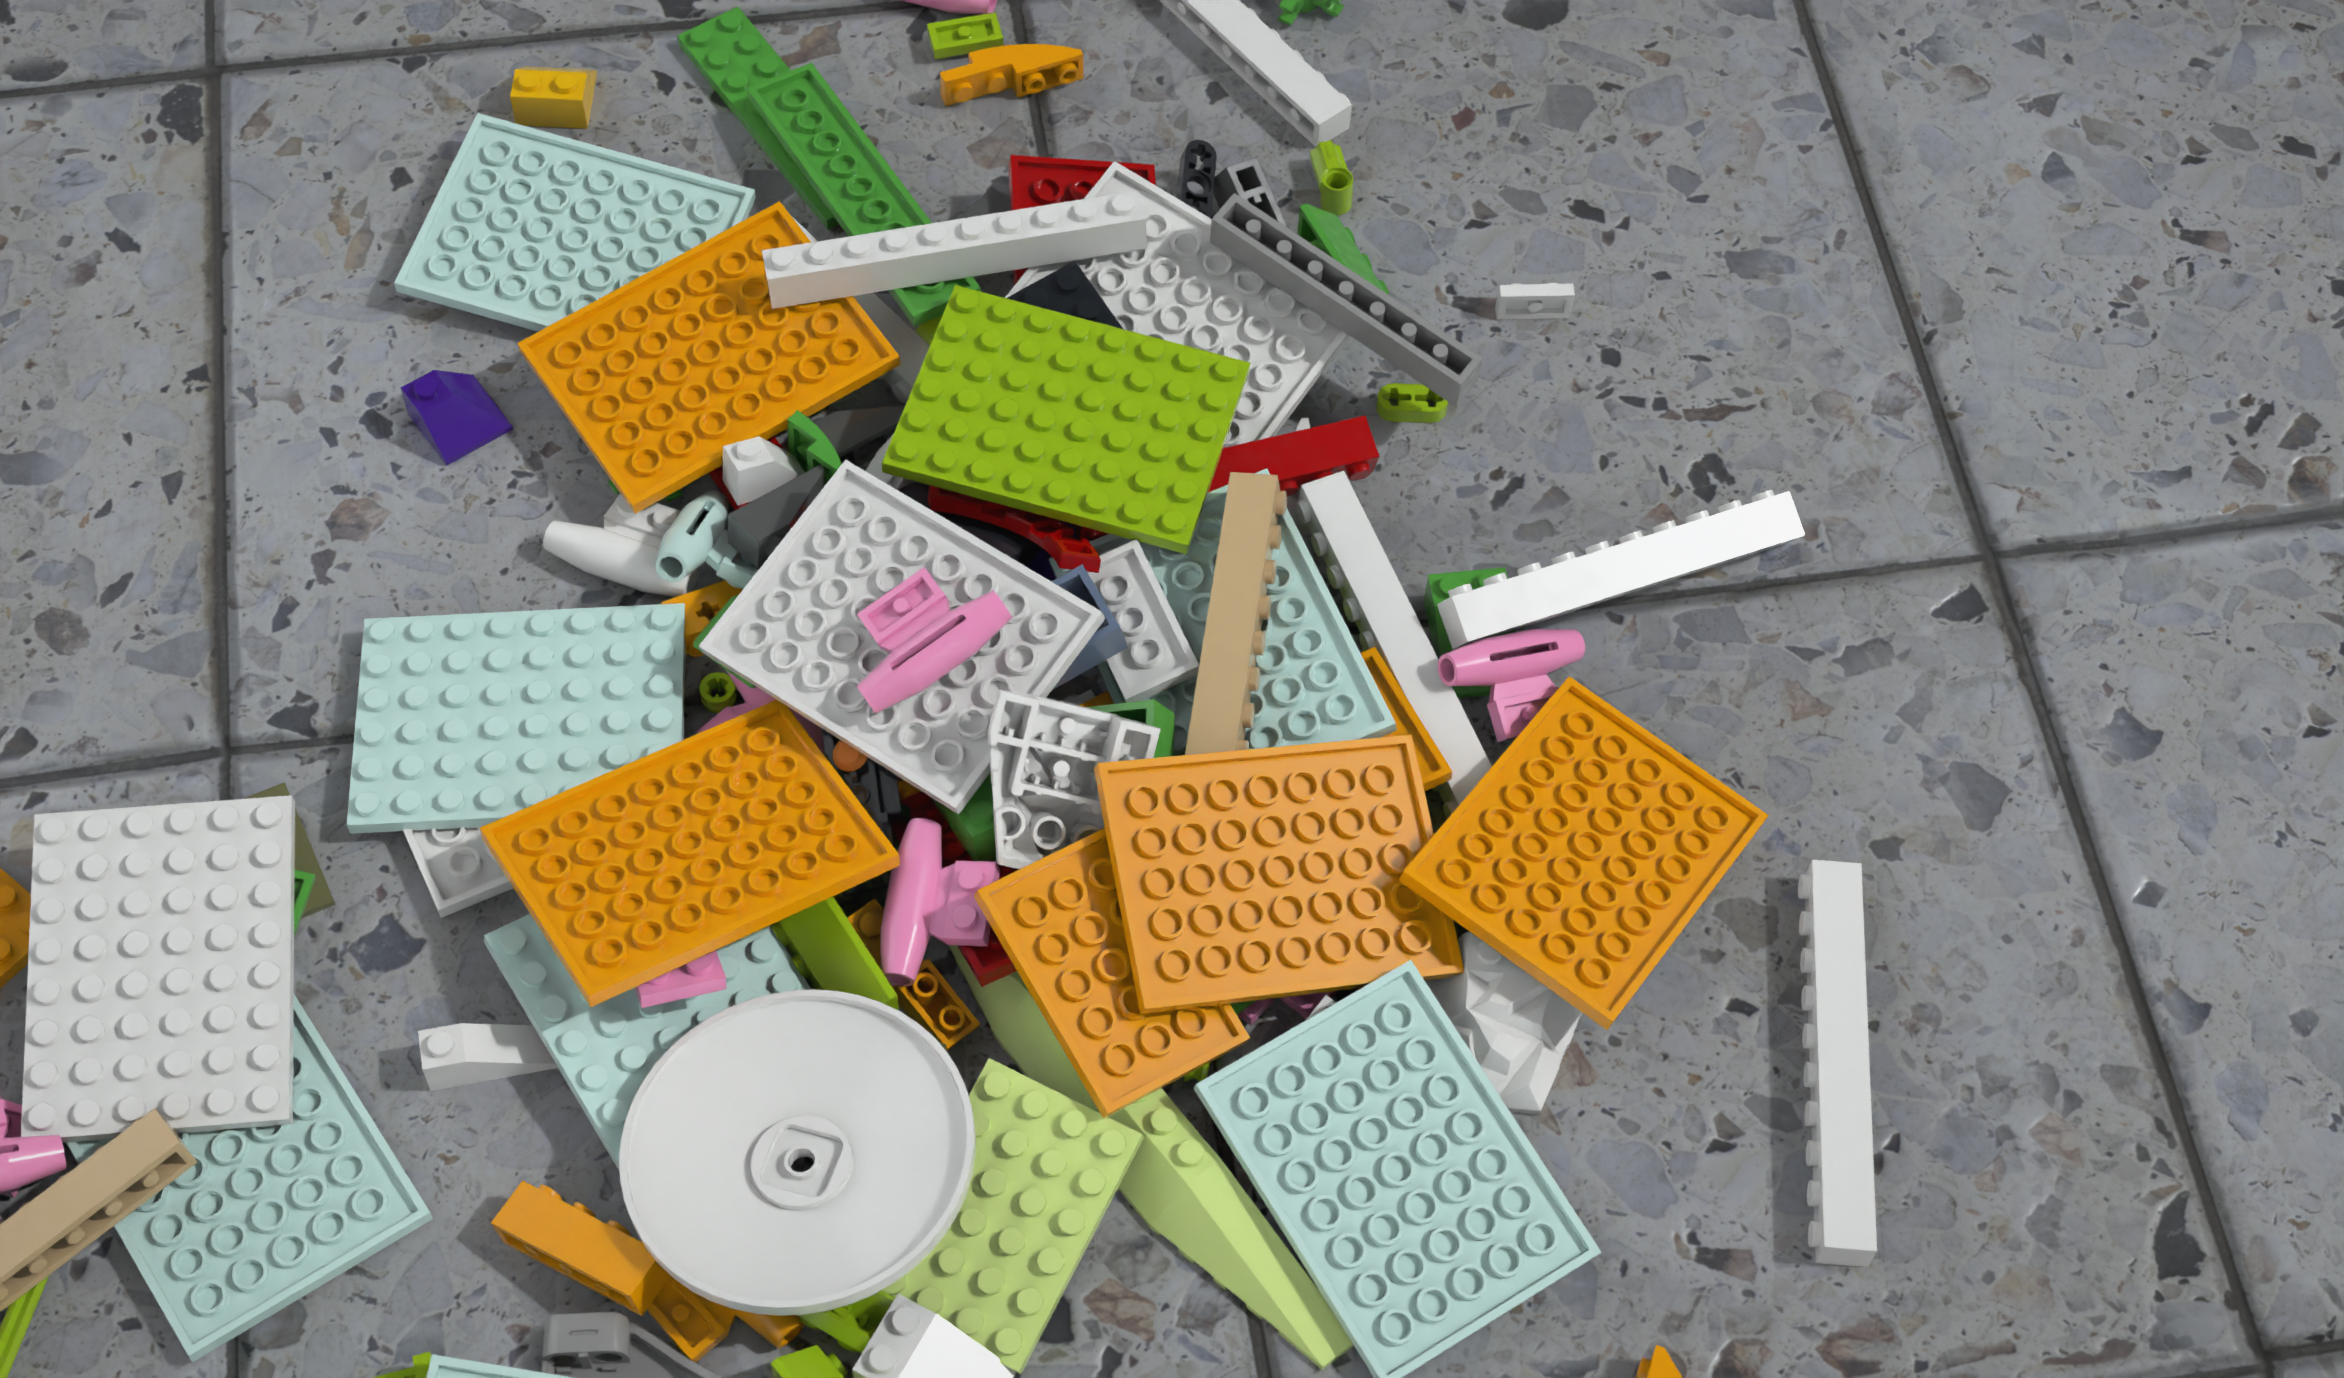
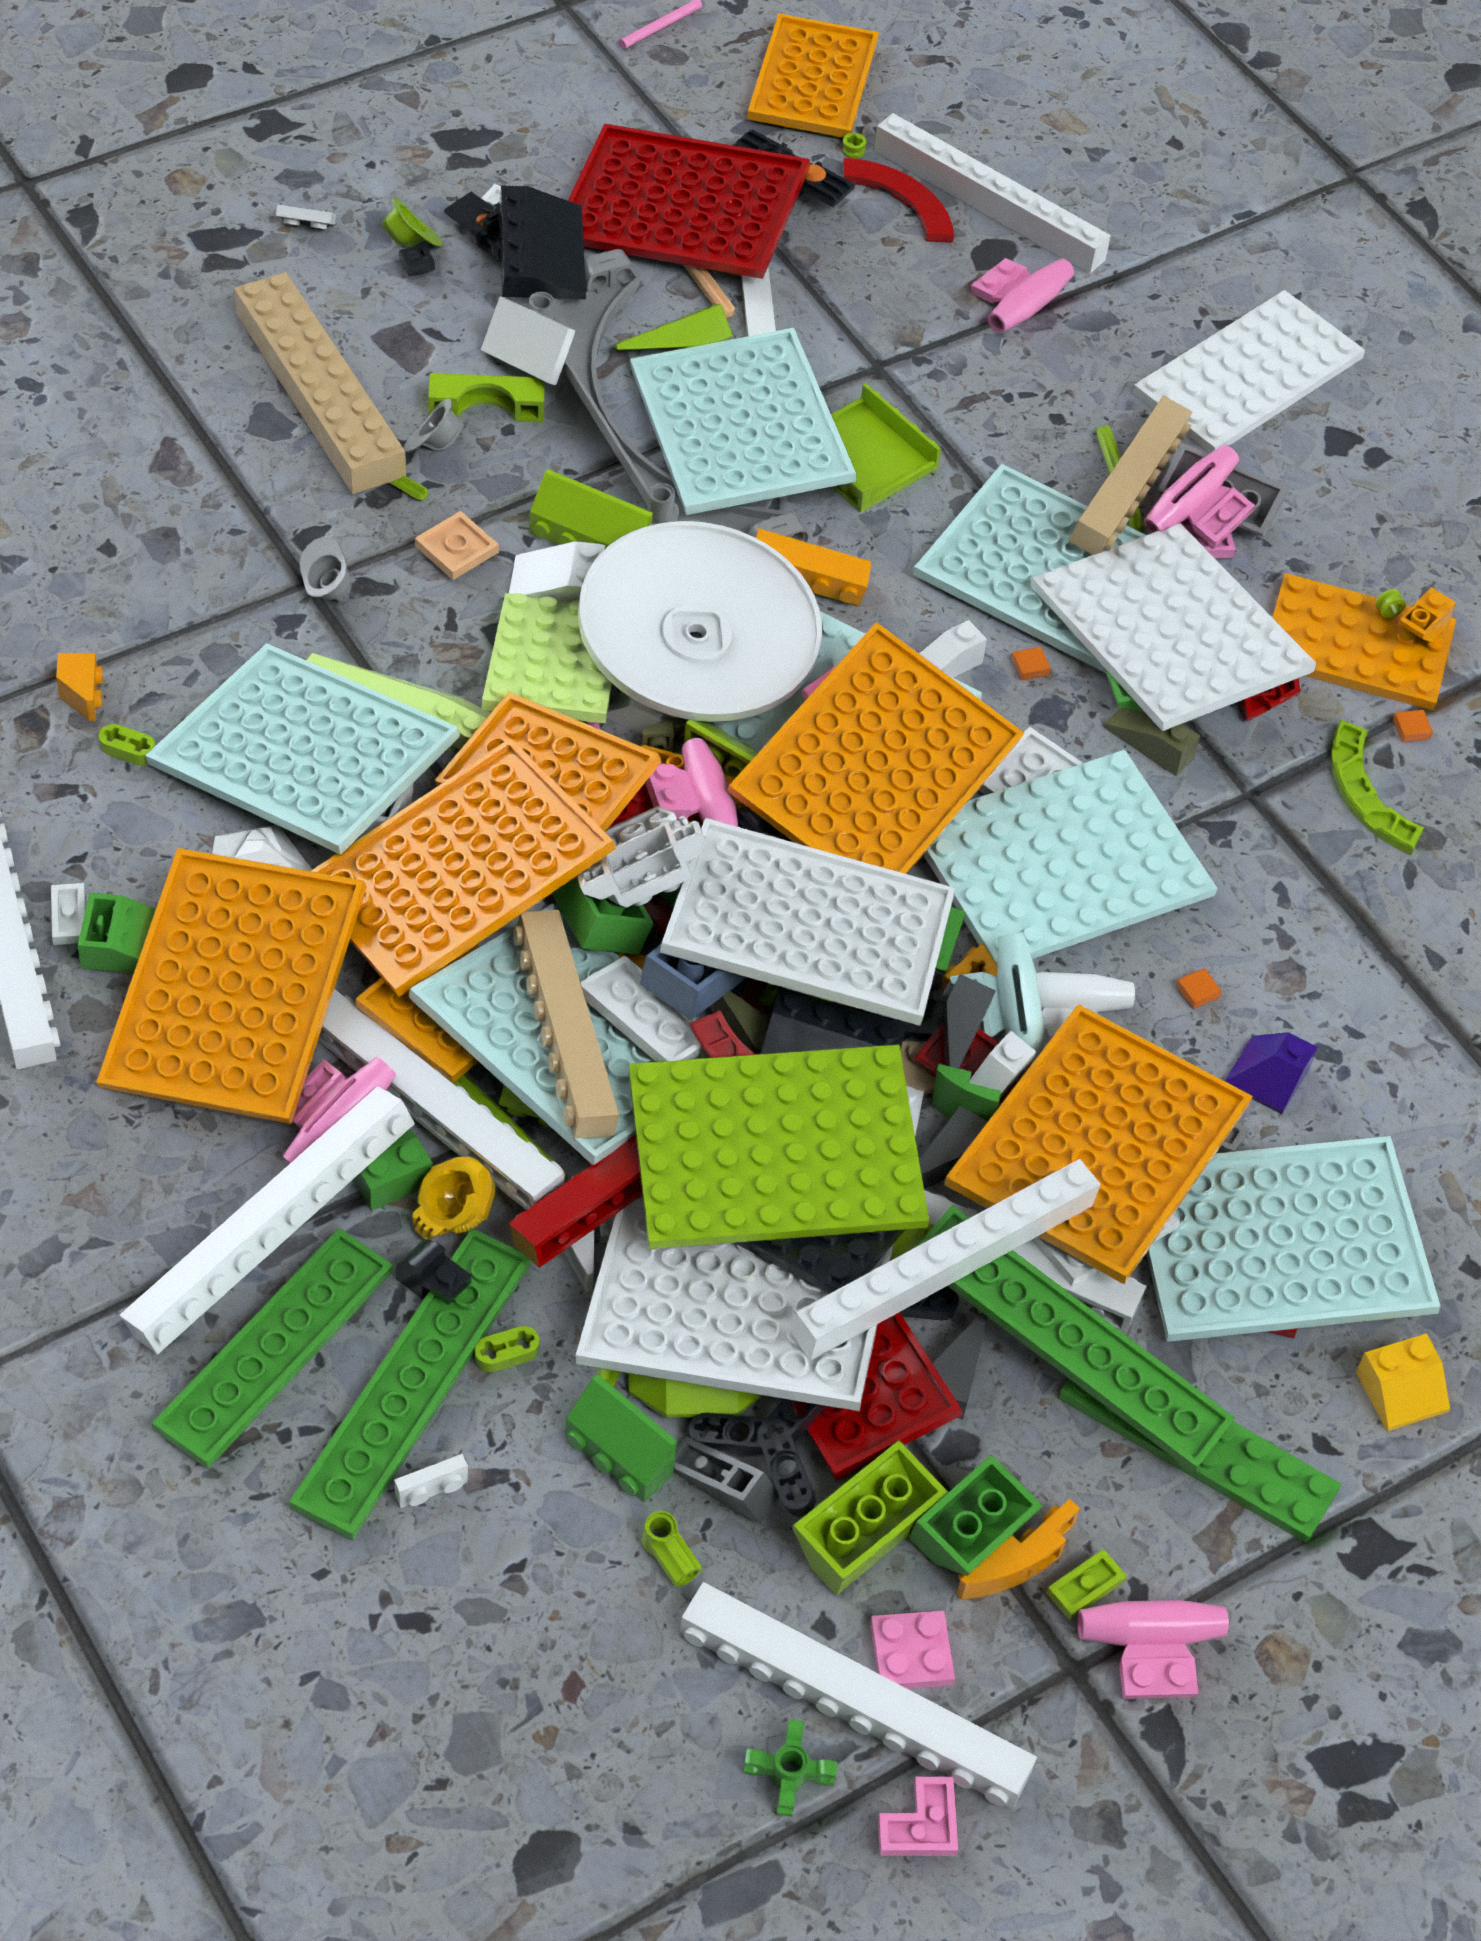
camera: 155 degrees right, 5 degrees down
(88, 712) = (1361, 795): none -> lime tile
(367, 1019) = (1031, 663): none -> orange tile
(466, 530) = (1199, 988): none -> orange tile
(924, 637) = (783, 890): bright pink plate -> none
(1041, 99) = (974, 1518): none -> bright green slope
(1136, 118) = (867, 1517): none -> lime slope
(1149, 44) = (913, 1649): none -> bright pink plate
(1345, 299) = (593, 1327): light grey brick -> none
(1416, 557) = (453, 1198): none -> yellow helmet
(1472, 480) = (429, 1269): none -> black brick
(1517, 400) = (408, 1389): none -> bright green plate
(1611, 1296) = (126, 745): none -> lime beam
(1647, 475) = (272, 1348): none -> bright green plate
(1698, 986) = (113, 932): none -> bright green slope
(1752, 1051) = (68, 912): none -> white plate

